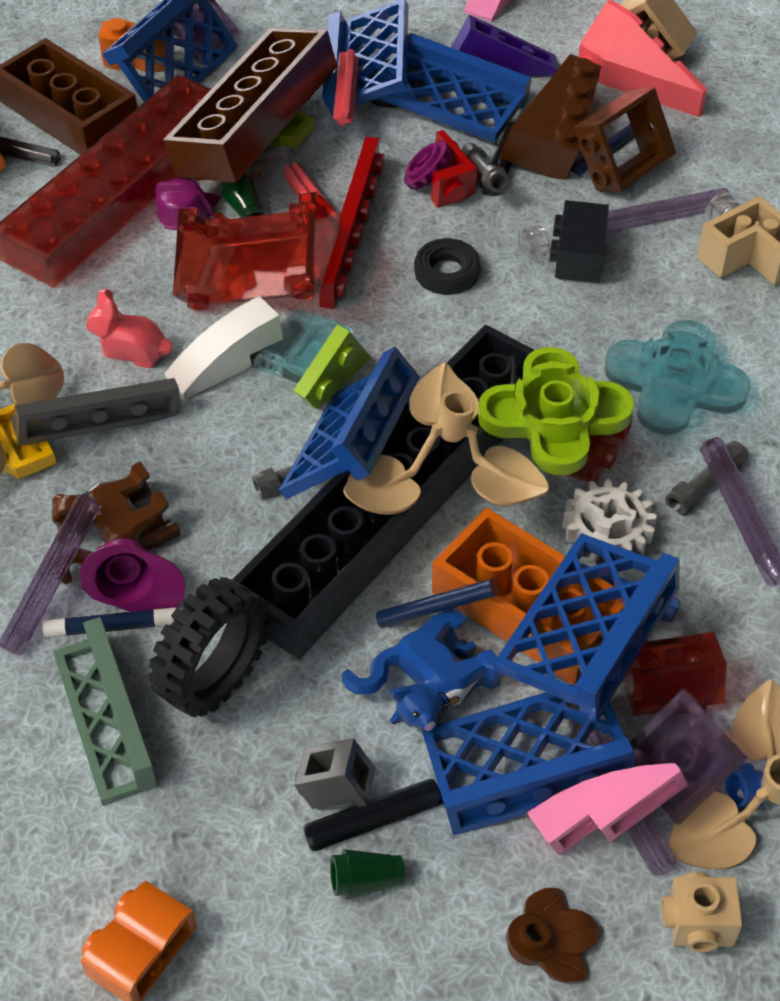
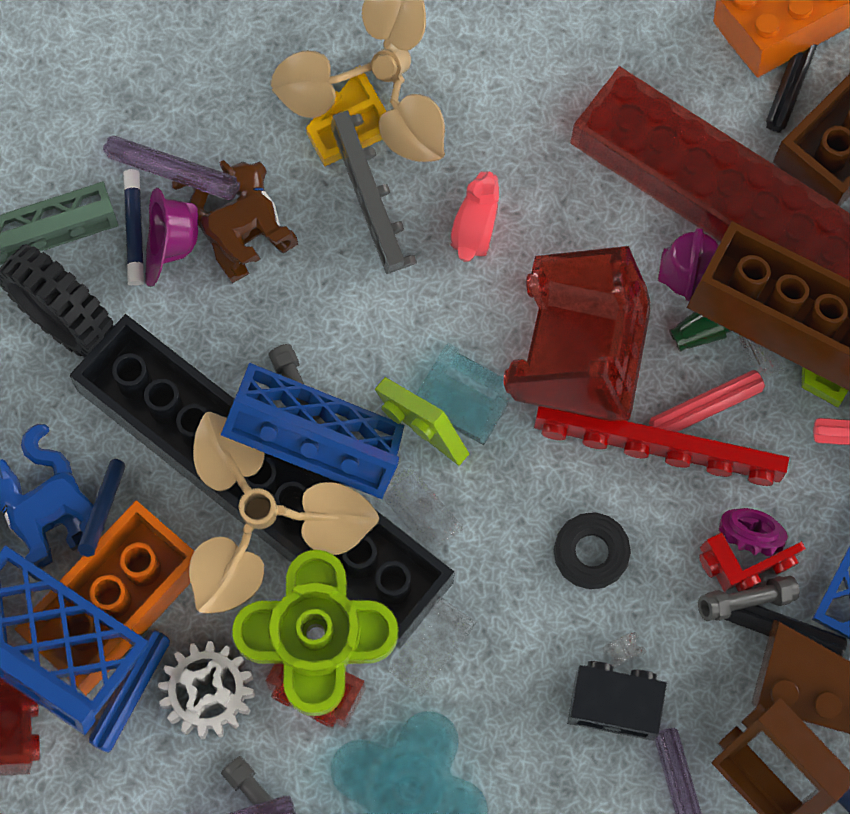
camera: 90 degrees right, 20 degrees up
(226, 347) = (460, 313): white slope -> none

